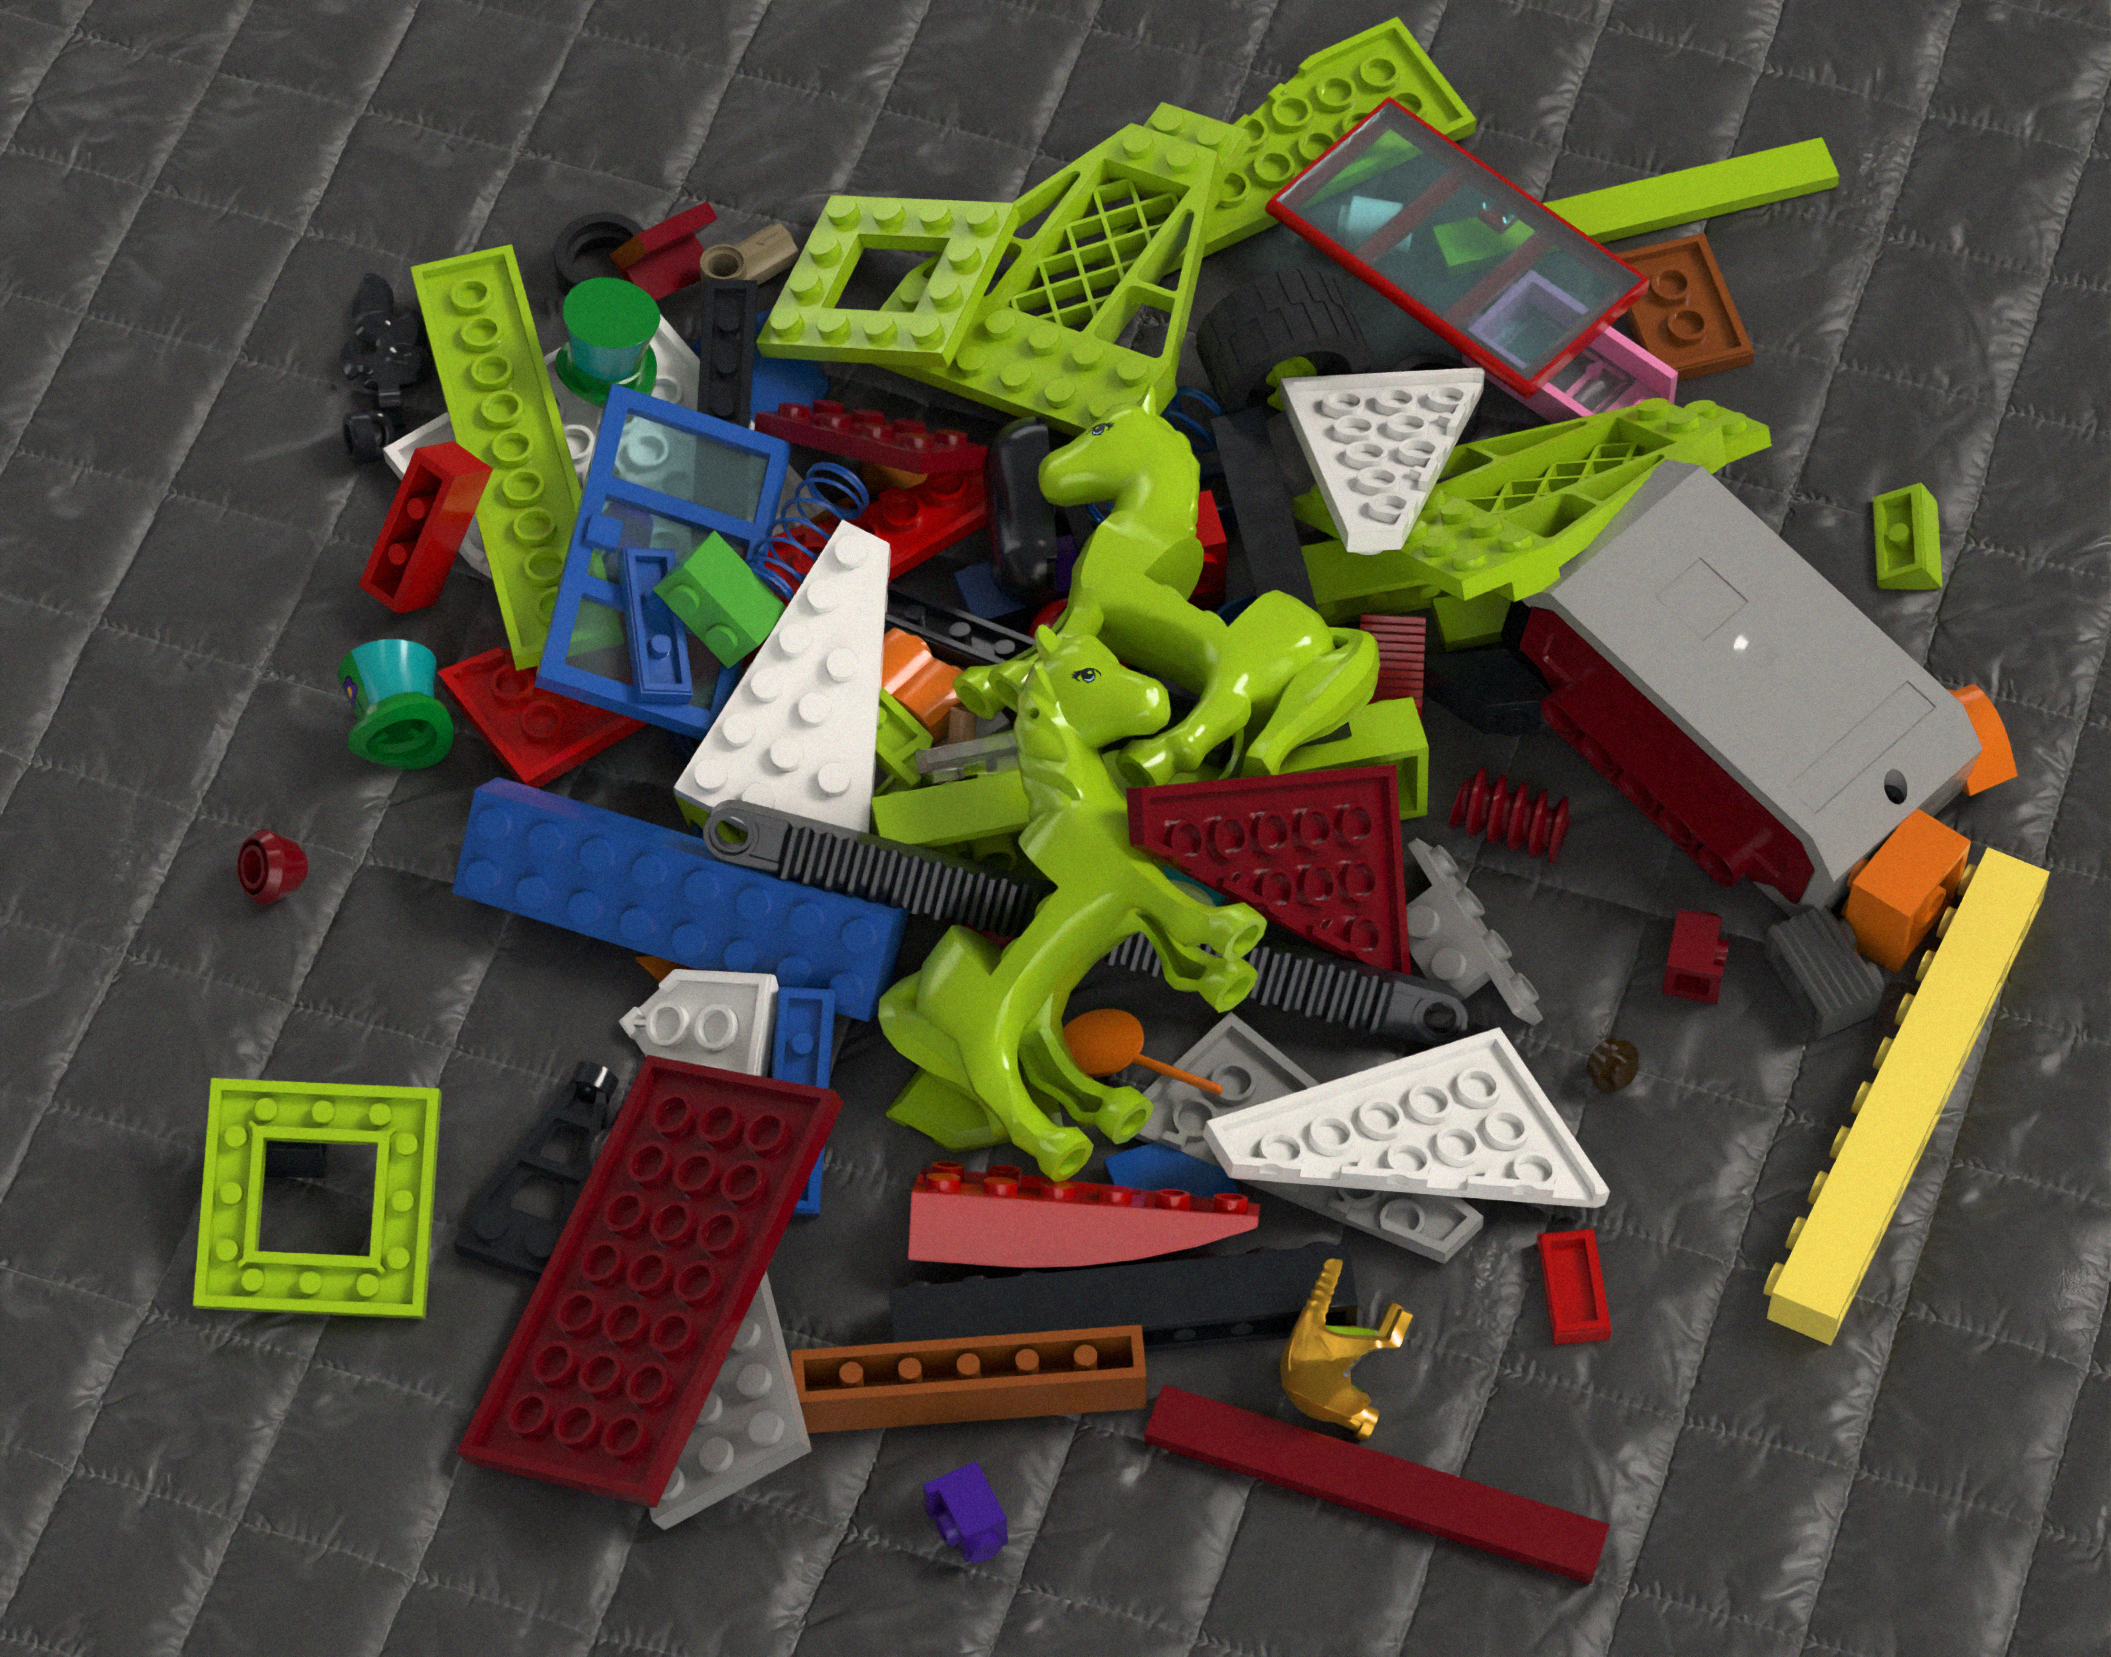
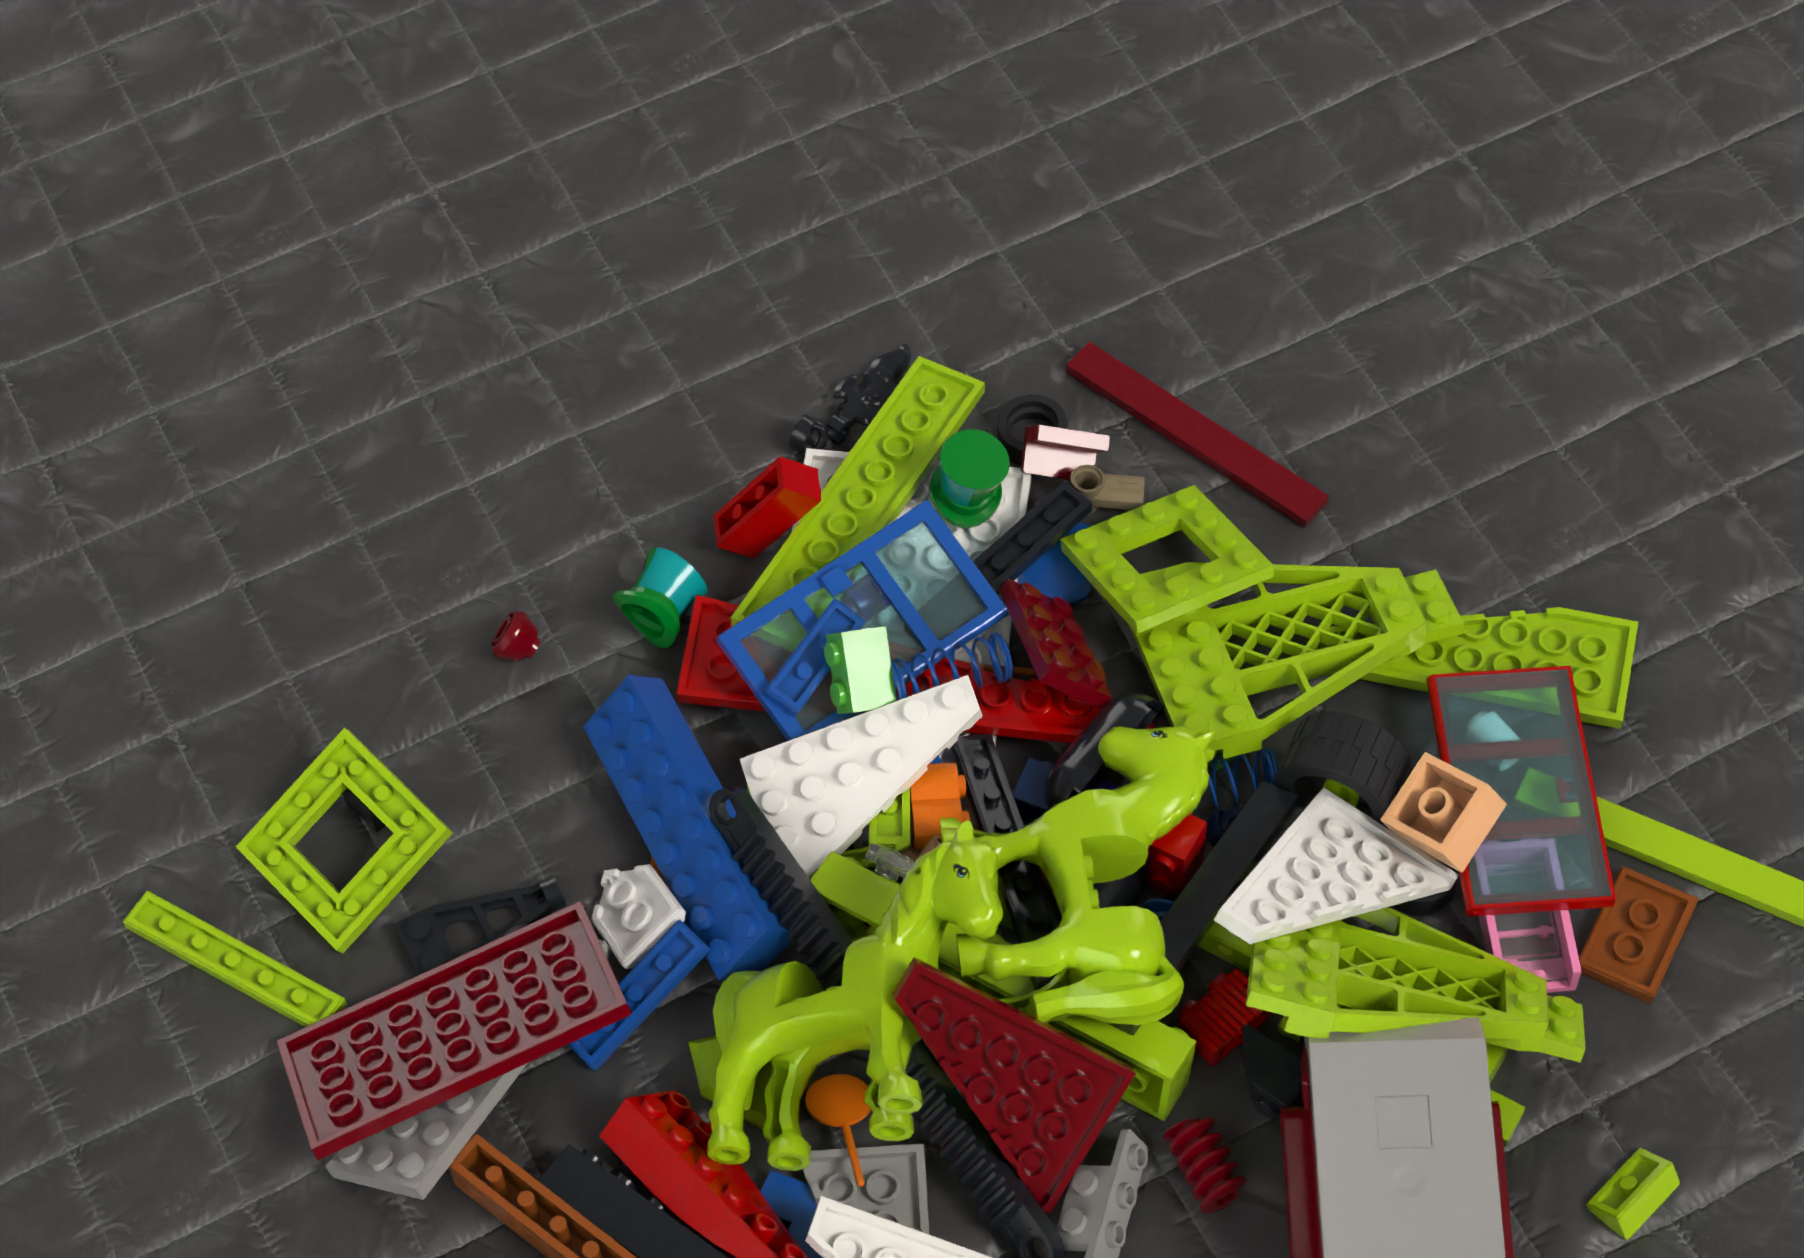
camera: 45 degrees right, 0 degrees up
(312, 1421) = (232, 961): none -> lime tile
(771, 147) = (1197, 434): none -> dark red tile
(1424, 310) = (1444, 811): none -> light nougat brick

